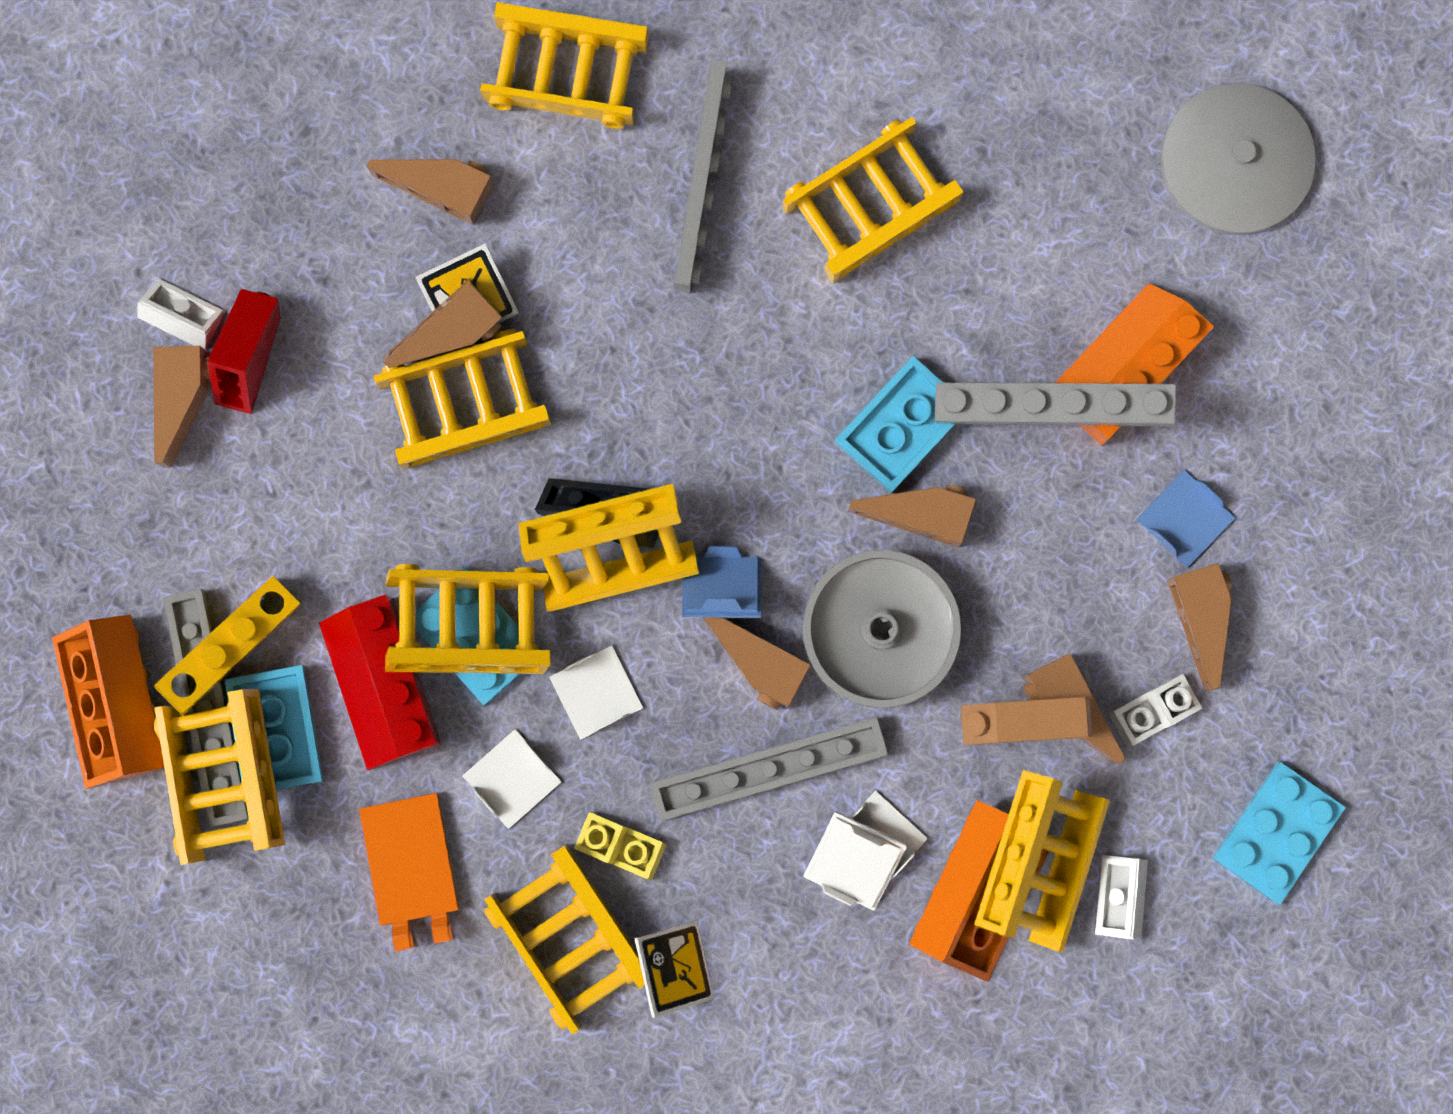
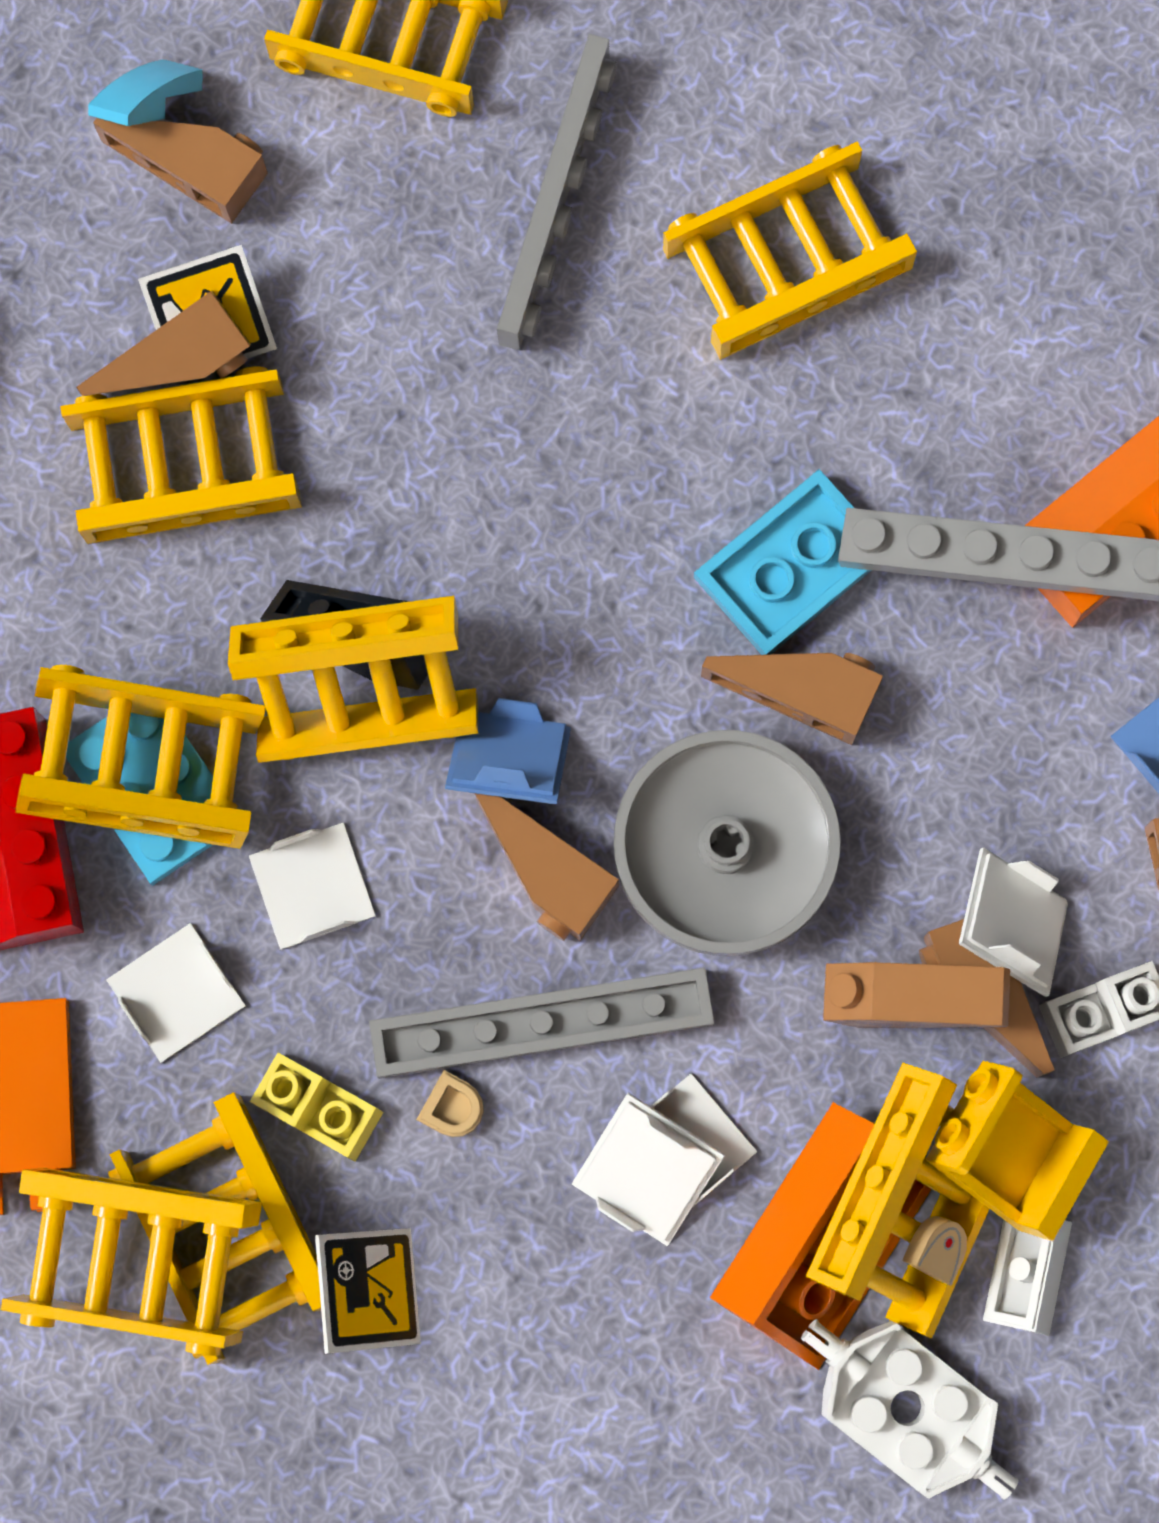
camera: 10 degrees right, 5 degrees down
(397, 139) = (142, 92): none -> medium azure slope
(531, 935) = (166, 1211): none -> yellow fence
(714, 834) = (452, 1107): none -> tan tile
(1060, 892) = (937, 1249): none -> tan tile
(1077, 1022) = (955, 1421): none -> white plate
(1086, 658) = (1015, 919): none -> white piece
(1106, 820) = (1015, 1151): none -> yellow panel

